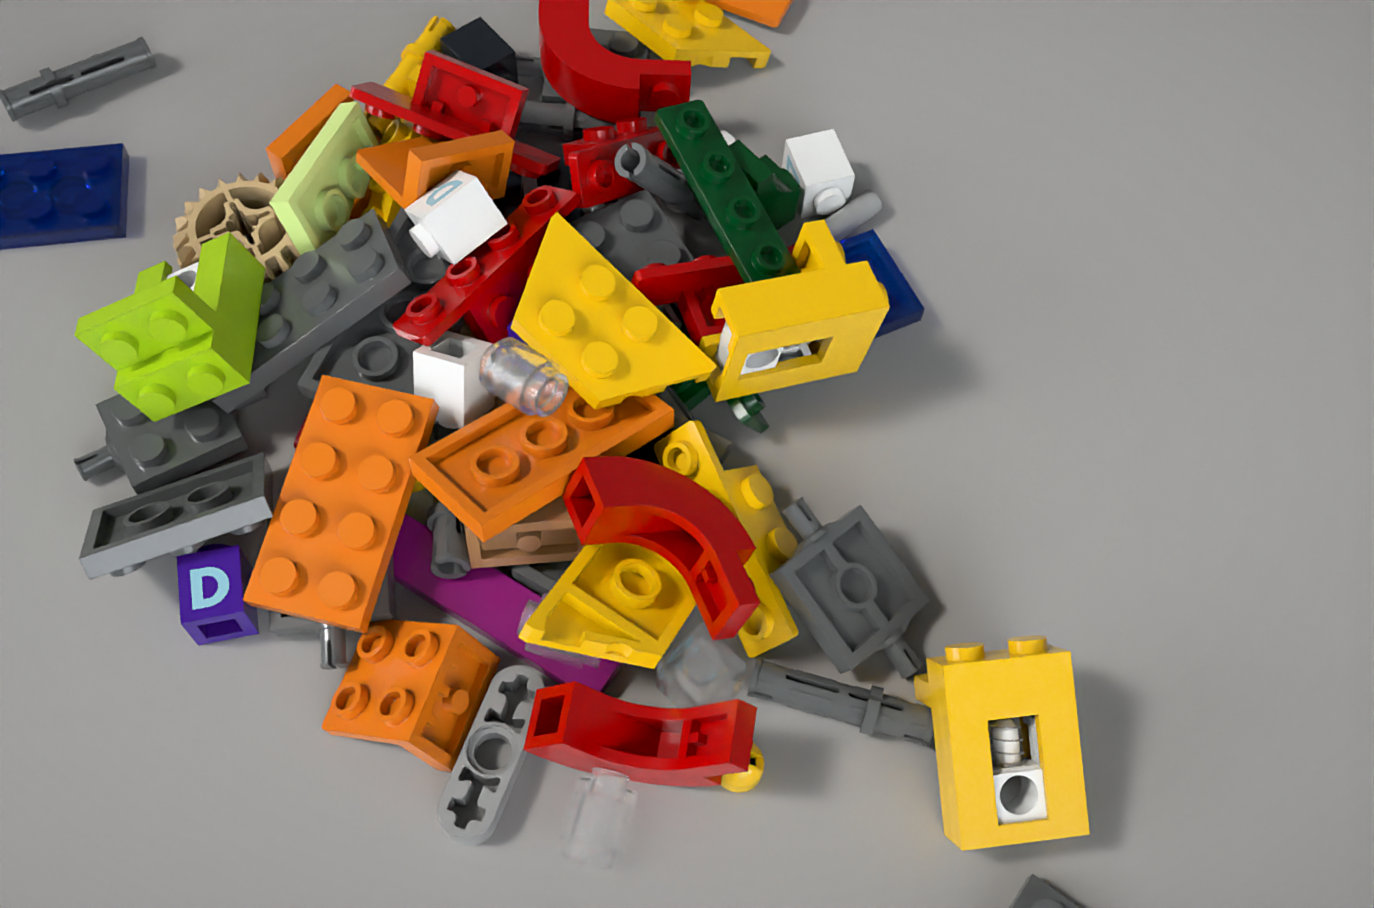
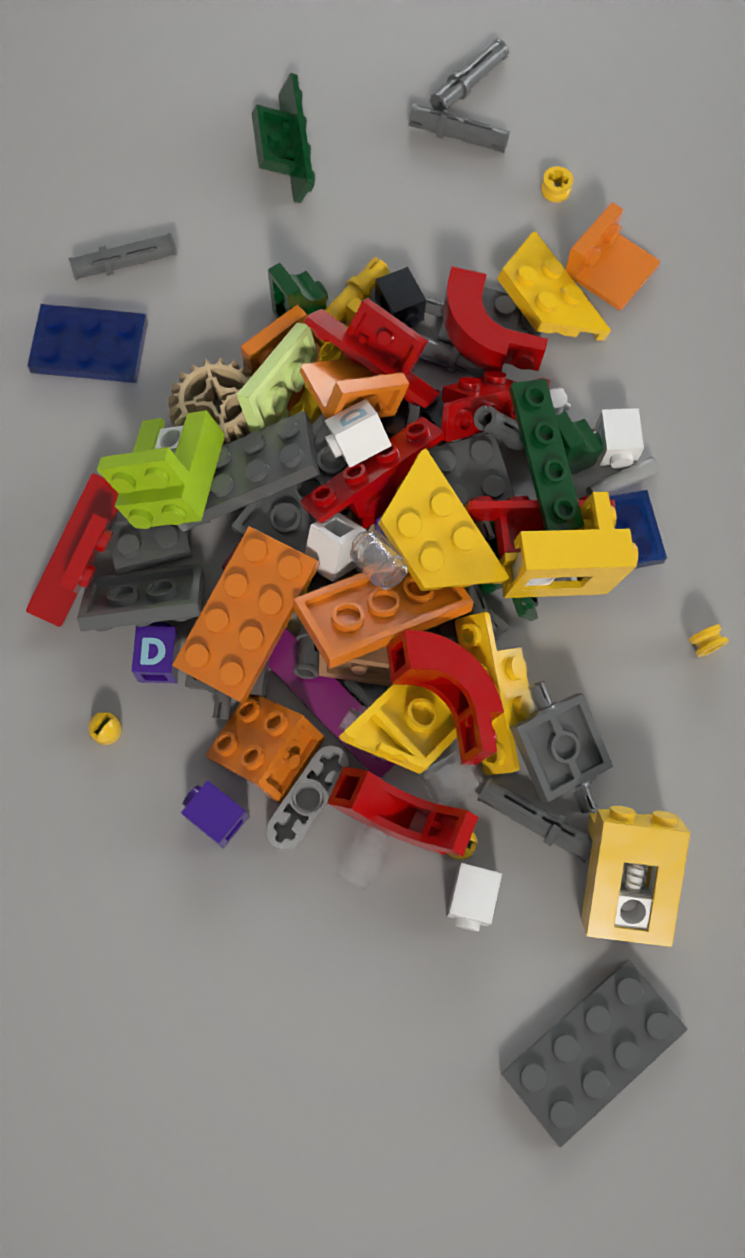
camera: 15 degrees right, 10 degrees up
(66, 476) = (75, 552): none -> red bracket
(162, 728) = (109, 733): none -> yellow hinge
(320, 69) = (294, 290): none -> dark green arch
(351, 809) = (214, 813): none -> dark purple brick
(779, 837) = (473, 897): none -> white brick
(1011, 403) = (708, 640): none -> yellow bush

